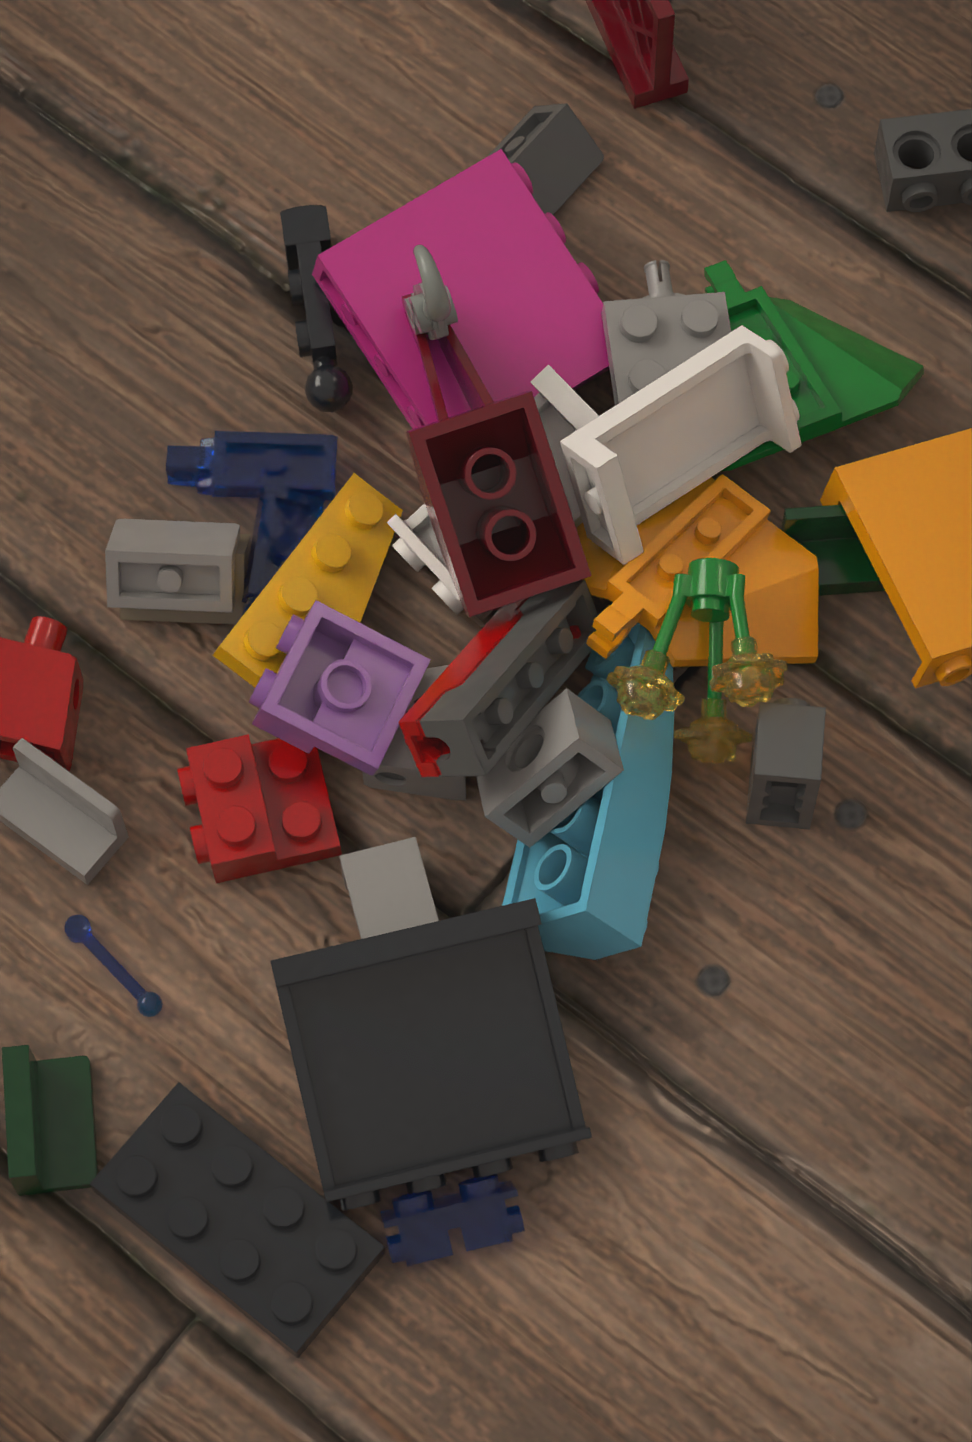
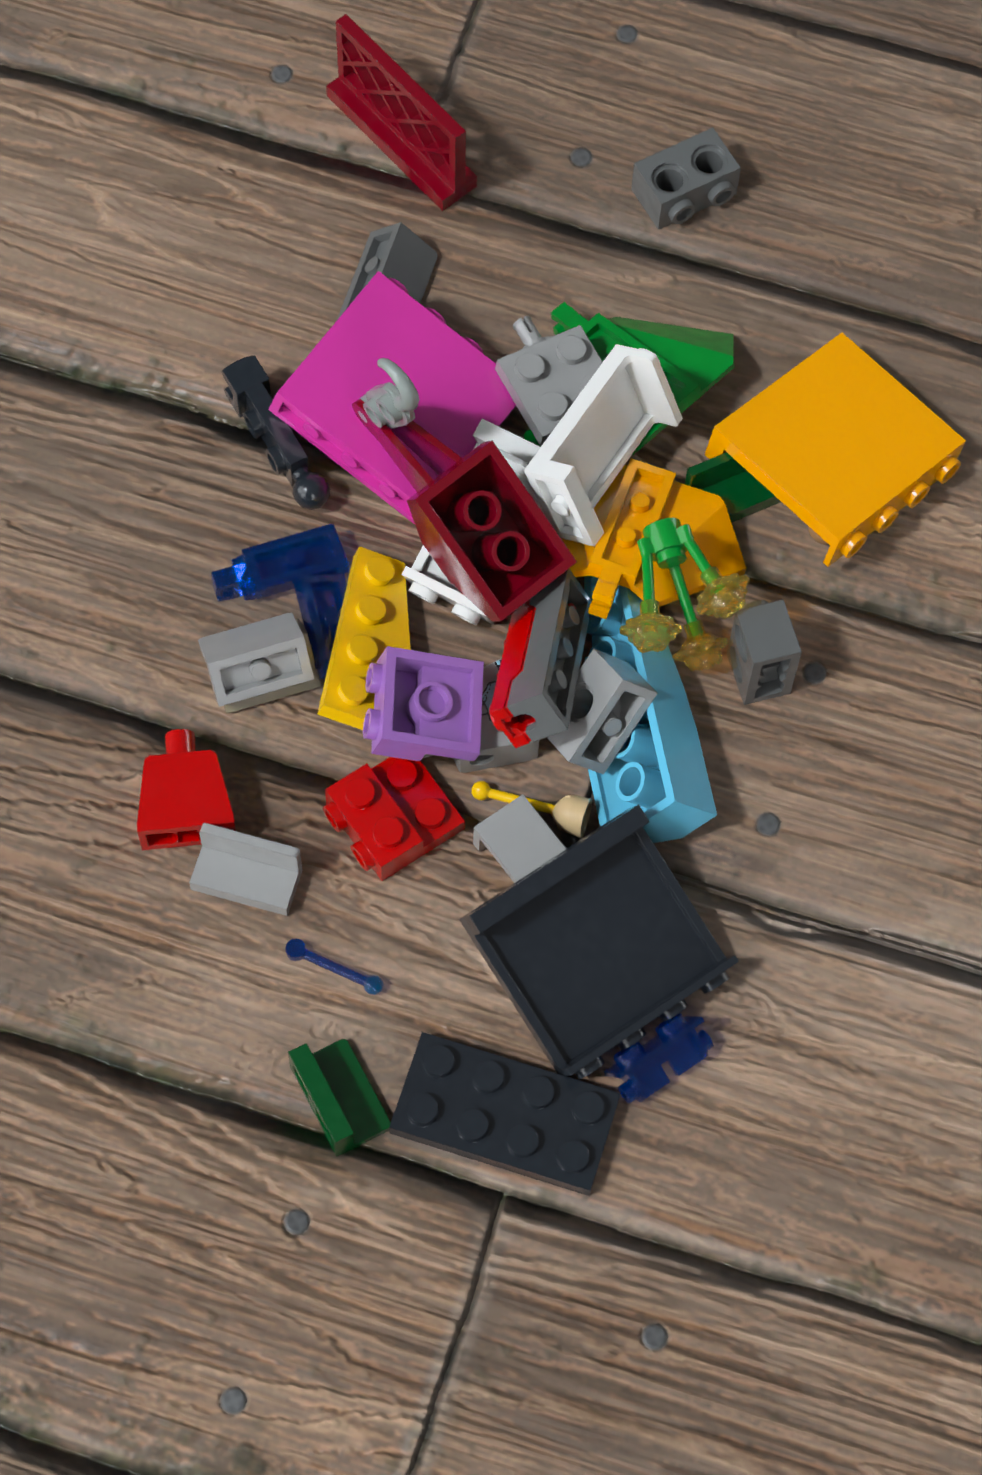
camera: 25 degrees left, 0 degrees up
(470, 882) = (569, 814): none -> tan hinge

